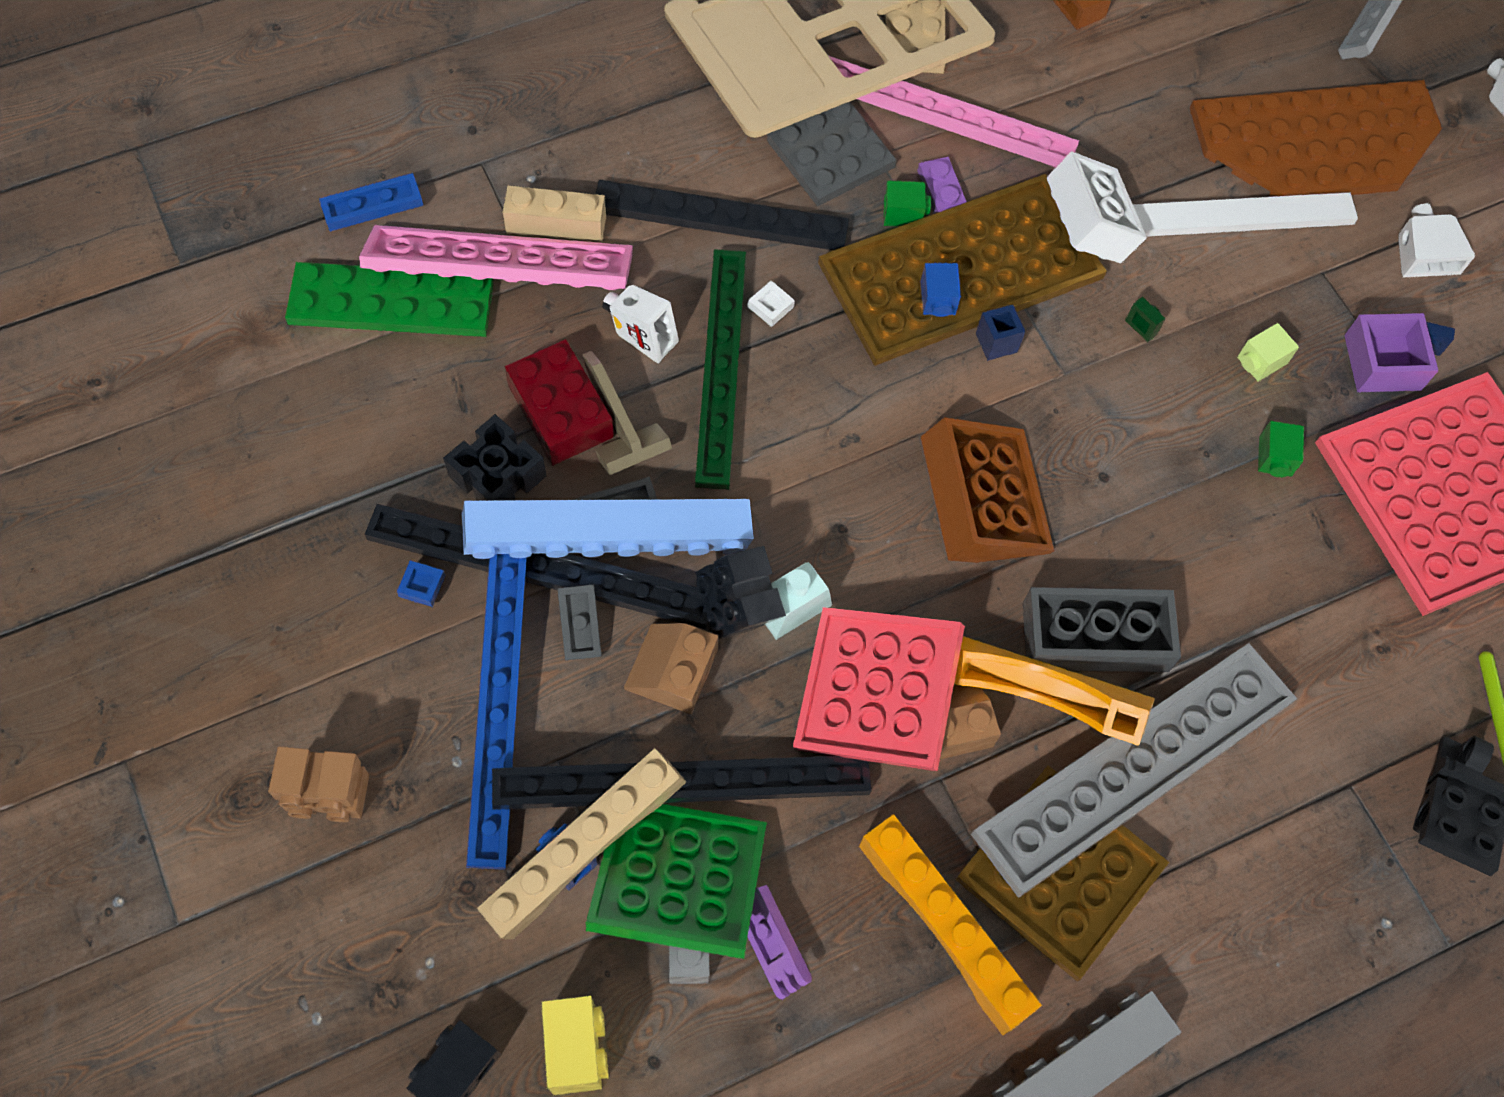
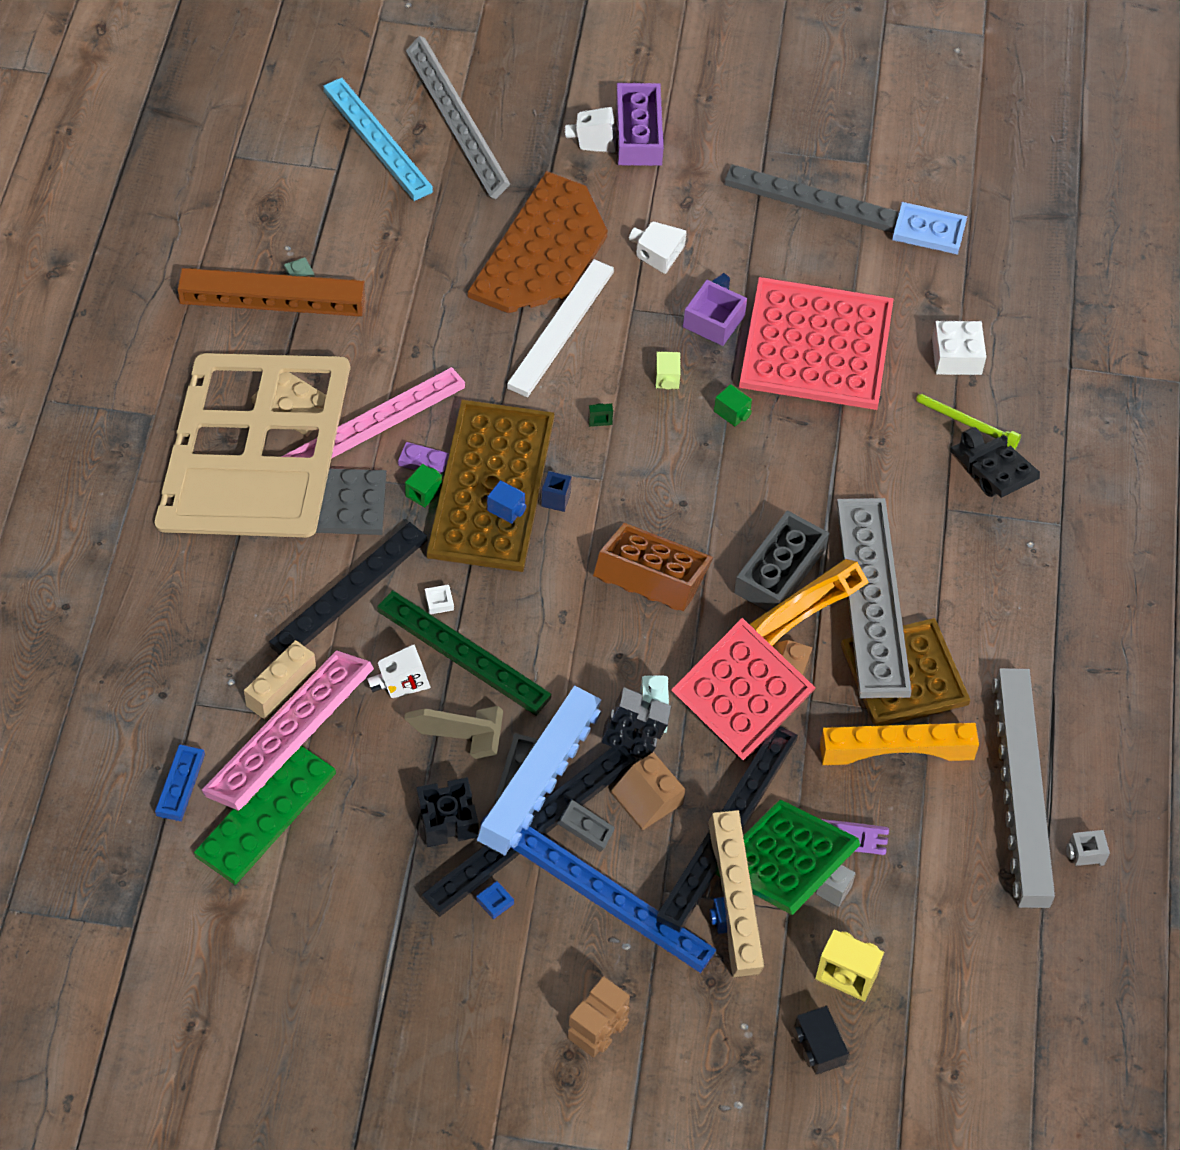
camera: 55 degrees left, 10 degrees down
(559, 402) = (423, 753): dark red brick -> none
(1095, 208) = (512, 388): white brick -> none

